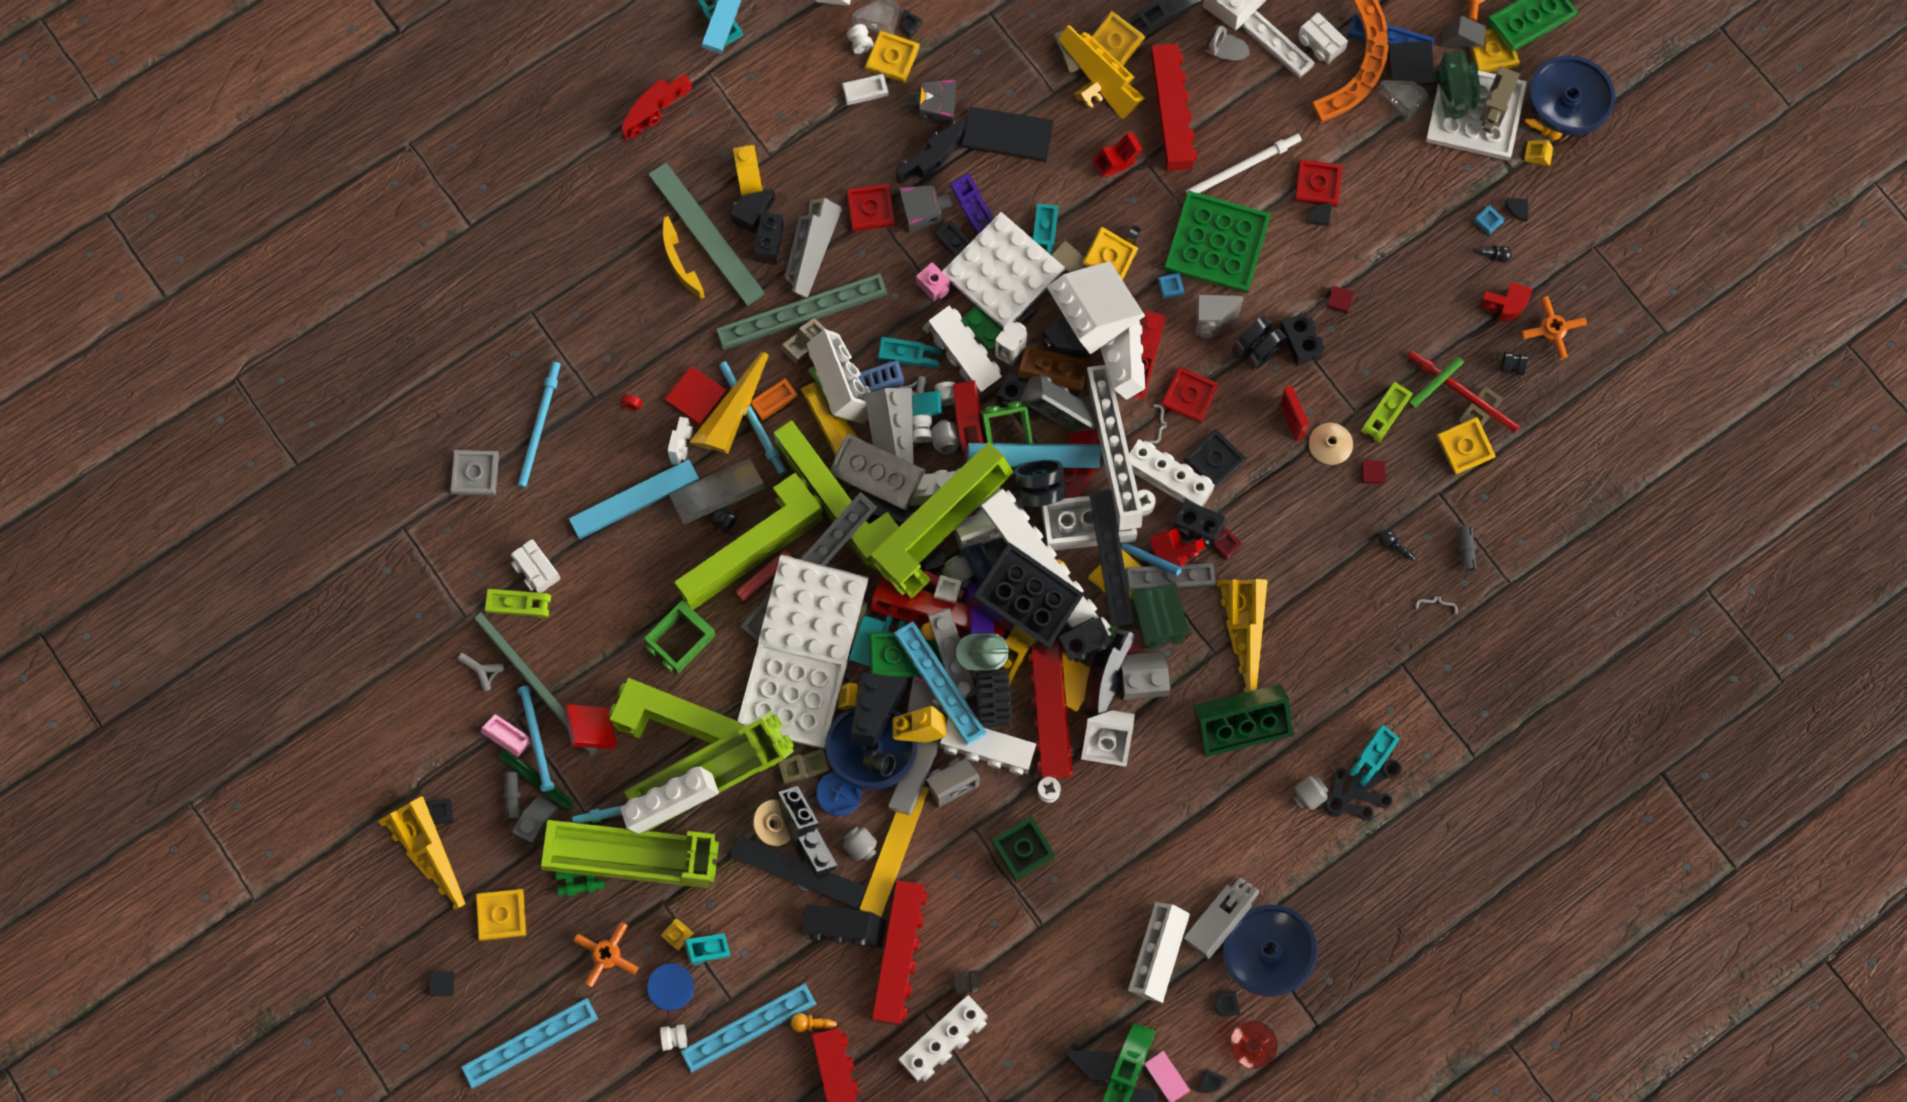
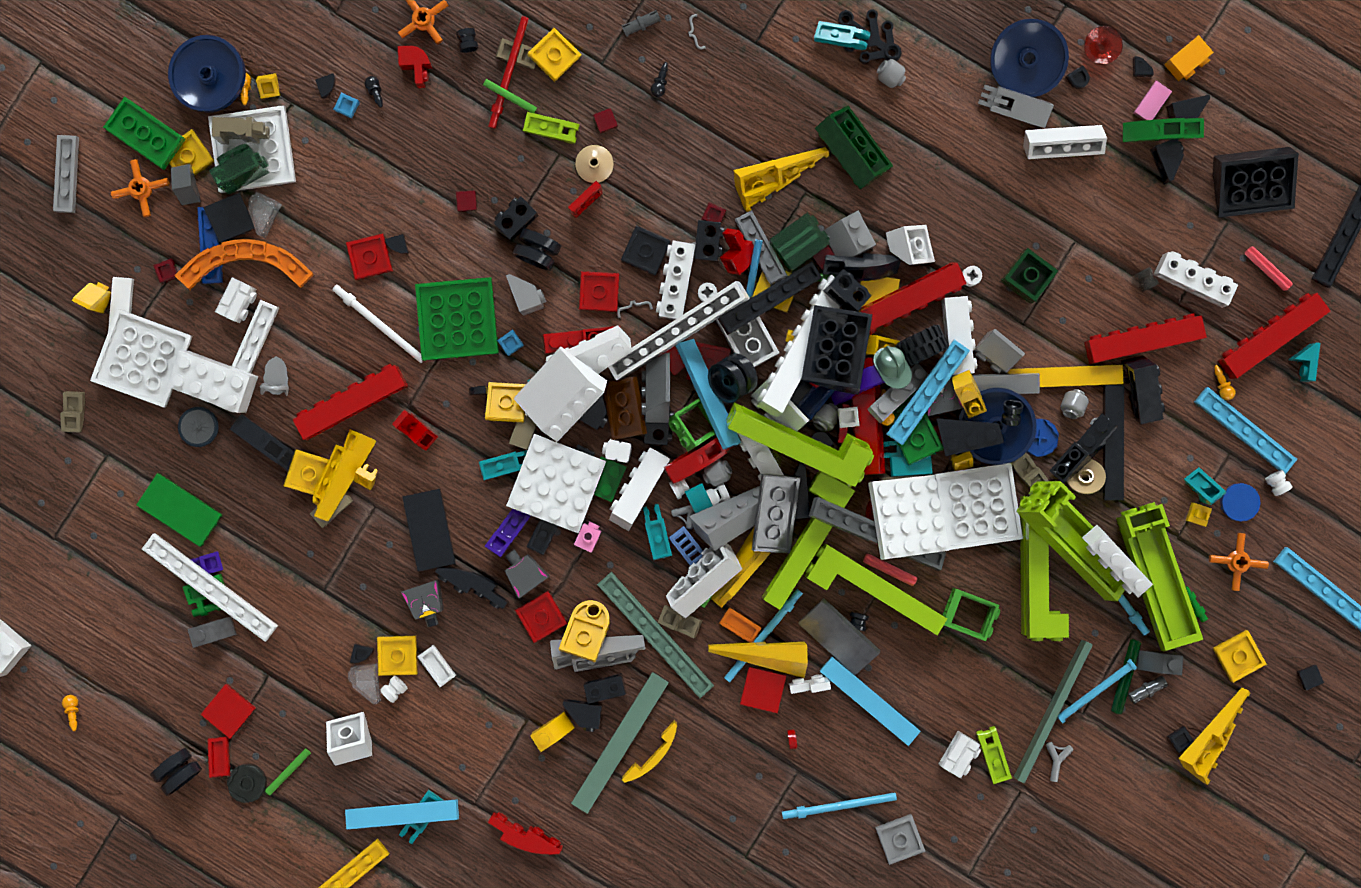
camera: 110 degrees left, 15 degrees up
(506, 735) = (1102, 715): bright pink tile -> none
(590, 727) = (1074, 652): red tile -> none
(835, 241) = (586, 632): none -> yellow tile

